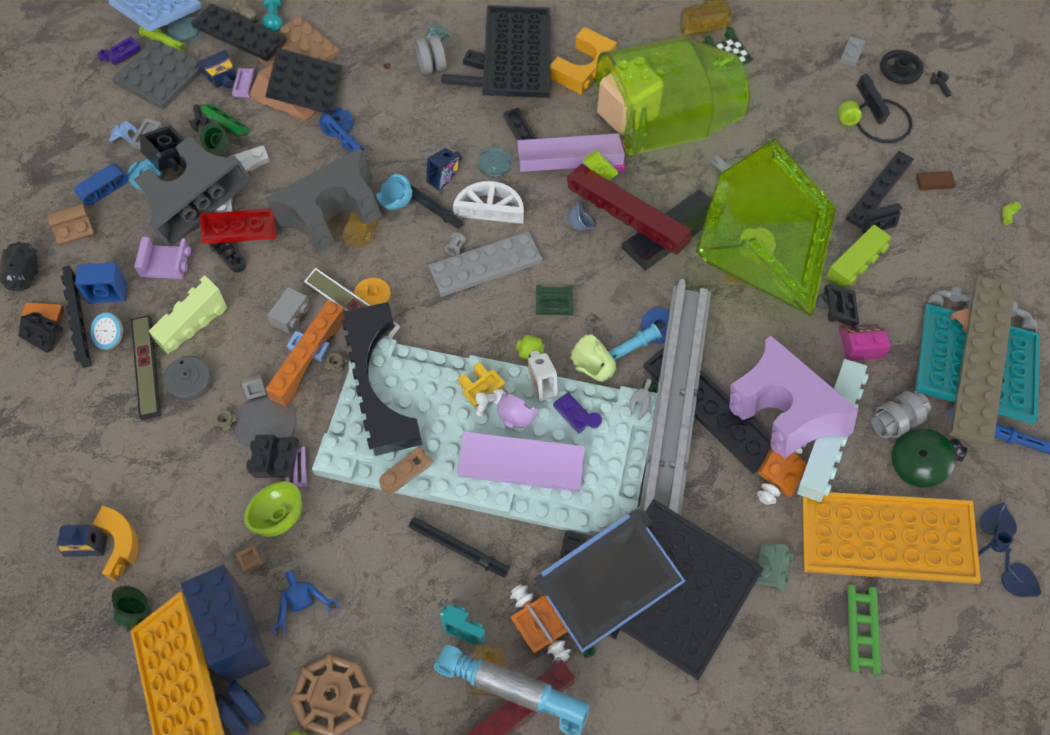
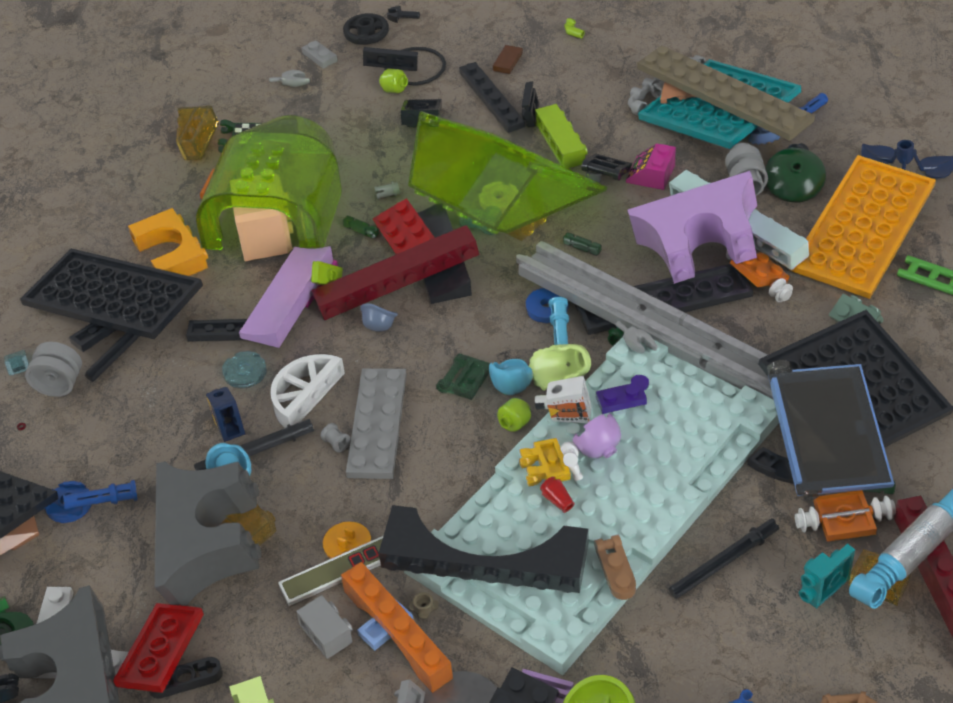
camera: 60 degrees left, 15 degrees down
(454, 402) = (557, 494): none -> red cone
(521, 461) = (657, 459): lavender arch -> none
(565, 328) = (510, 376): none -> medium azure piece
(673, 166) = (360, 226): none -> dark green axle
(682, 195) = (402, 227): none -> red plate
(742, 323) = (582, 243): none -> dark green axle
(809, 46) = (292, 78): none -> light grey hand
(824, 147) = (411, 109): none -> black plate

